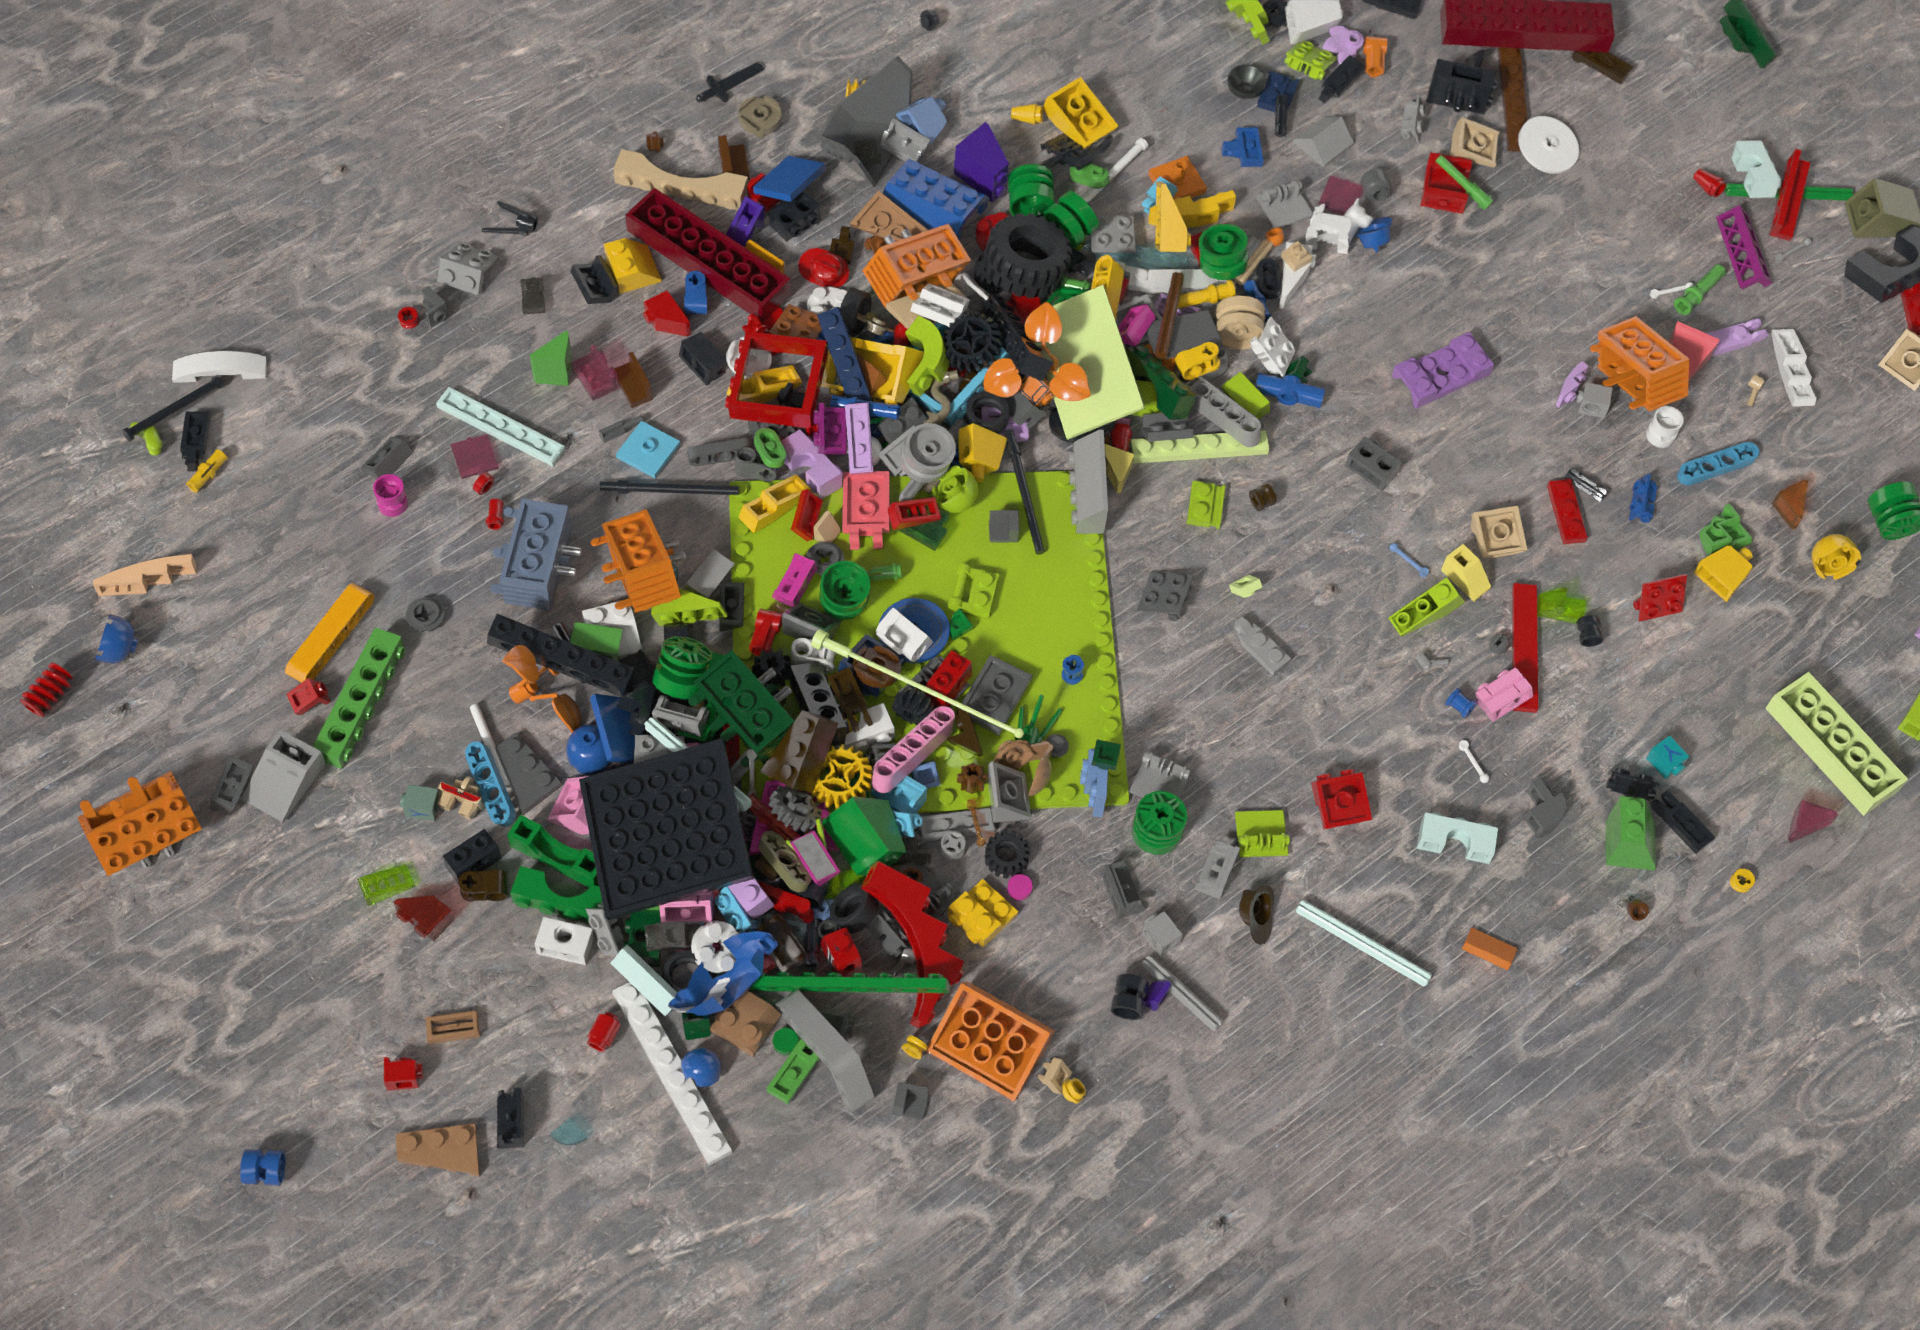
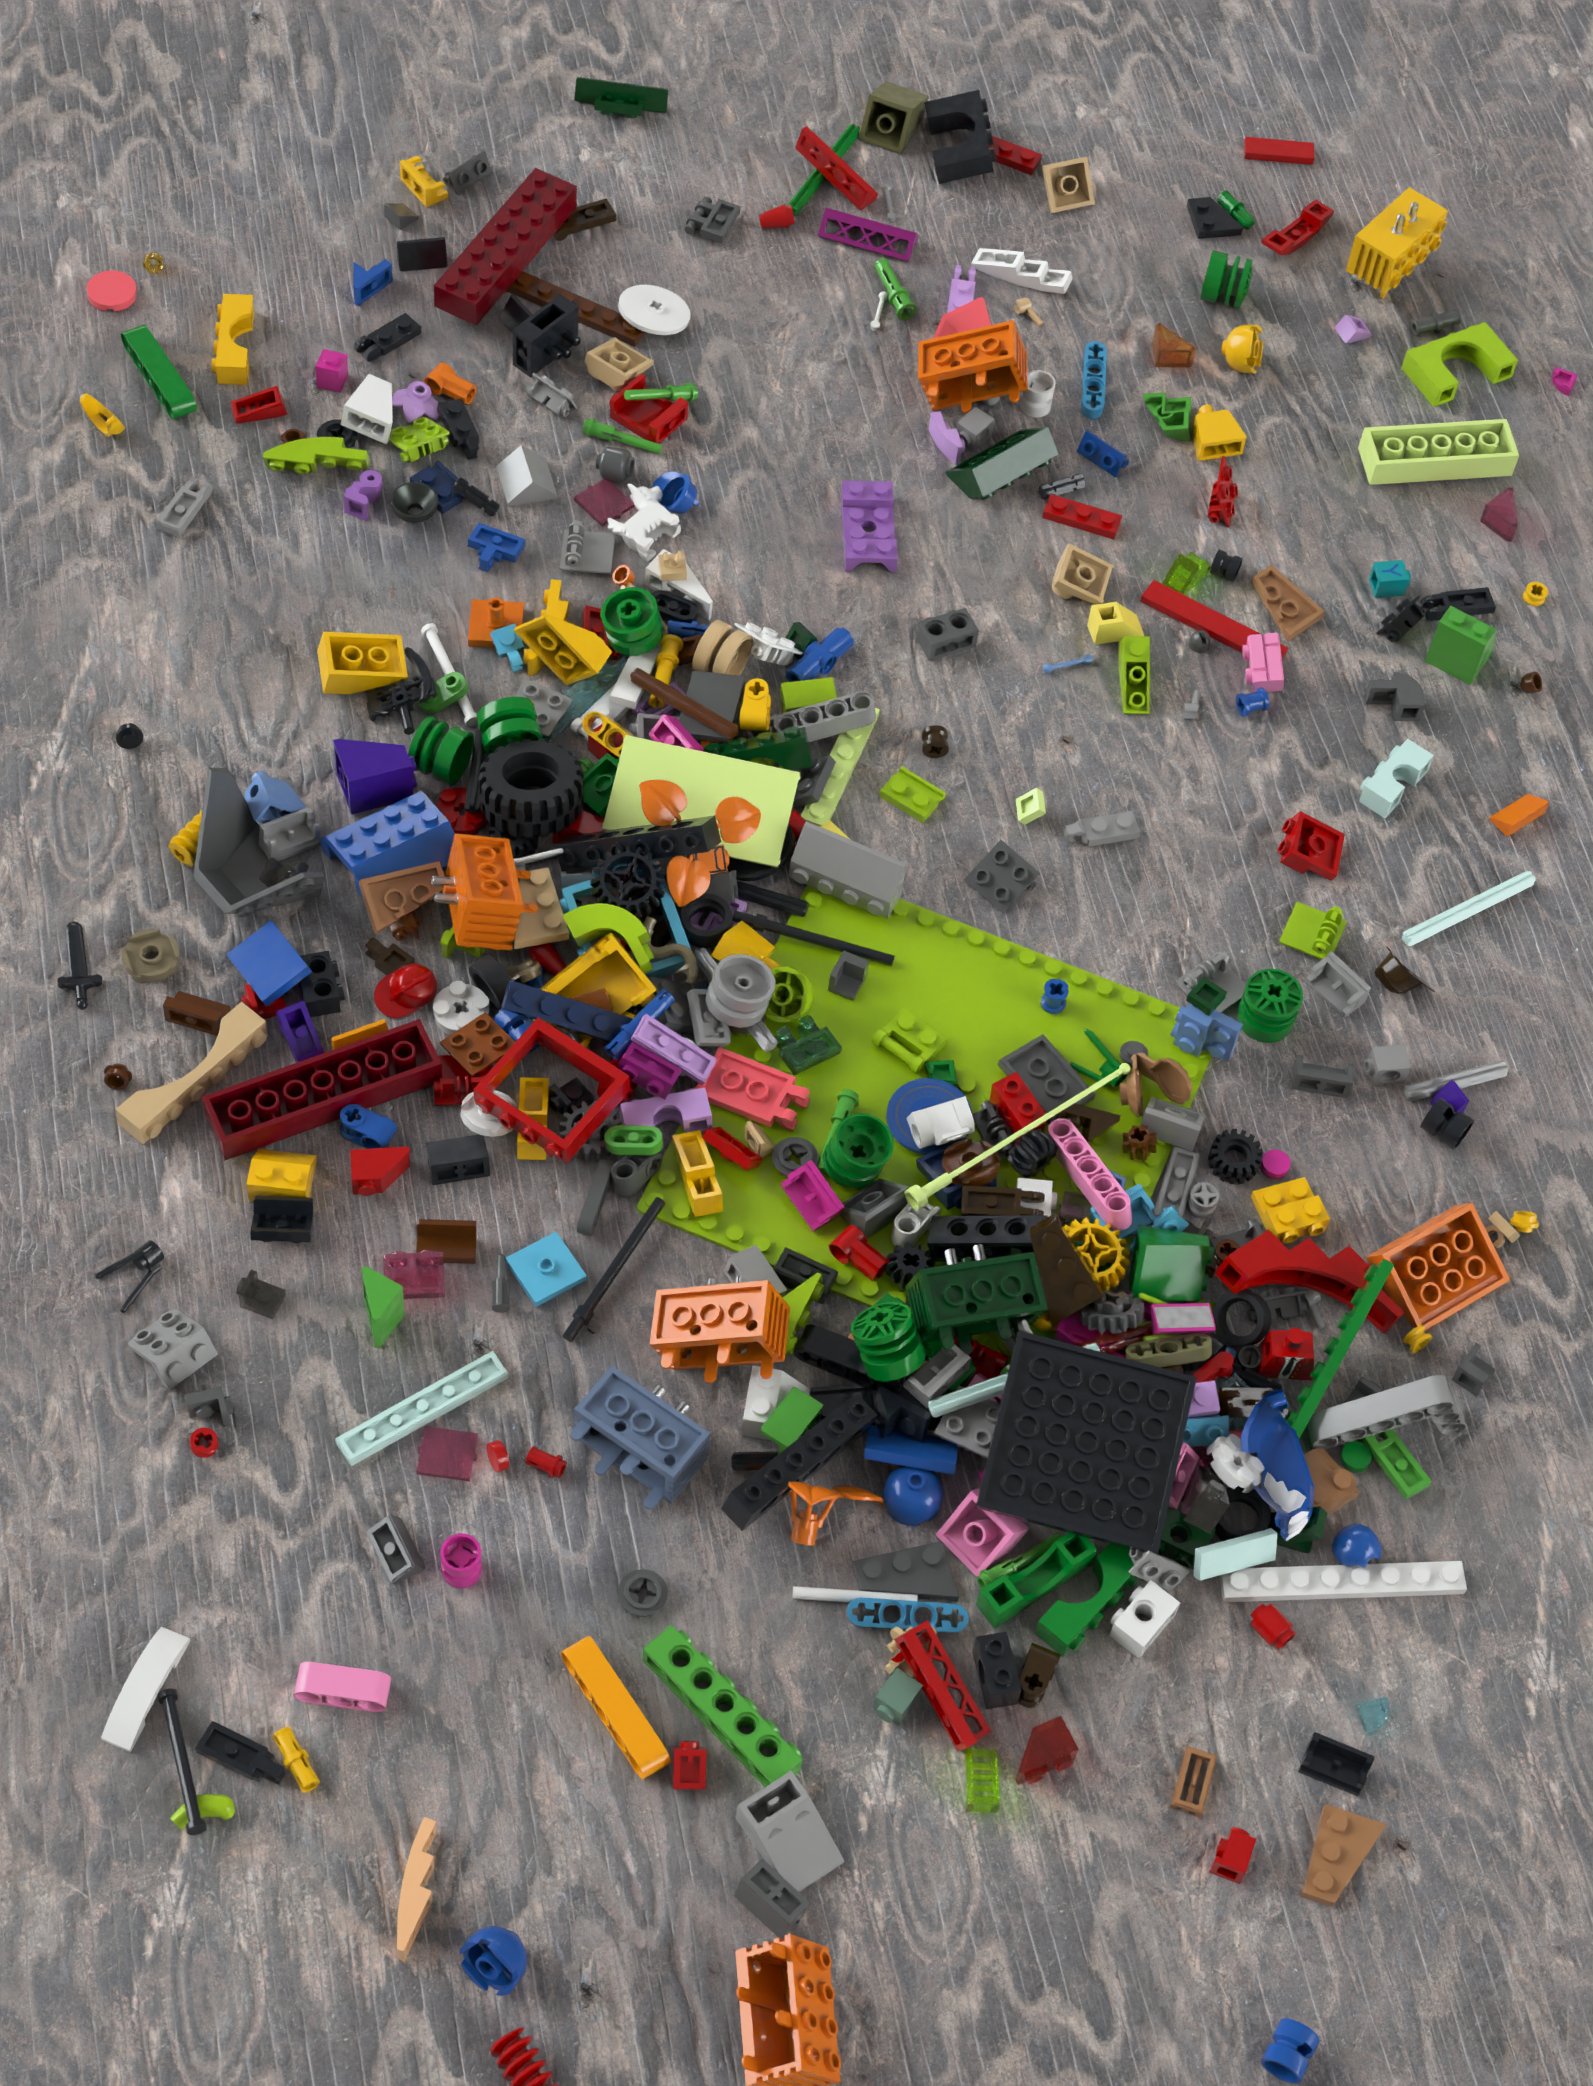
camera: 65 degrees left, 5 degrees down
(268, 472) = (342, 1686): none -> bright pink beam
(430, 820) = (936, 1688): none -> red fence
(562, 834) = (1011, 1567): none -> bright green pin
(899, 516) = (795, 1046): red slope -> none
(940, 305) = (558, 890): white slope -> none
(971, 805) = (1164, 1161): clear orange hinge -> none
(1028, 113) = (322, 708): yellow cone -> none
(1043, 449) = (772, 899): none -> black axle
(1241, 52) = (362, 493): none -> medium lavender leg
(1402, 157) = (606, 432): none -> bright green pin
(1463, 745) = (1295, 726): white hinge -> none
(1576, 433) = (1004, 462): none -> slope
(1585, 690) = (1286, 603): none -> medium nougat wing
(1673, 143) = (719, 221): none -> dark grey plate
(1761, 175) = (775, 170): light aqua arch -> none

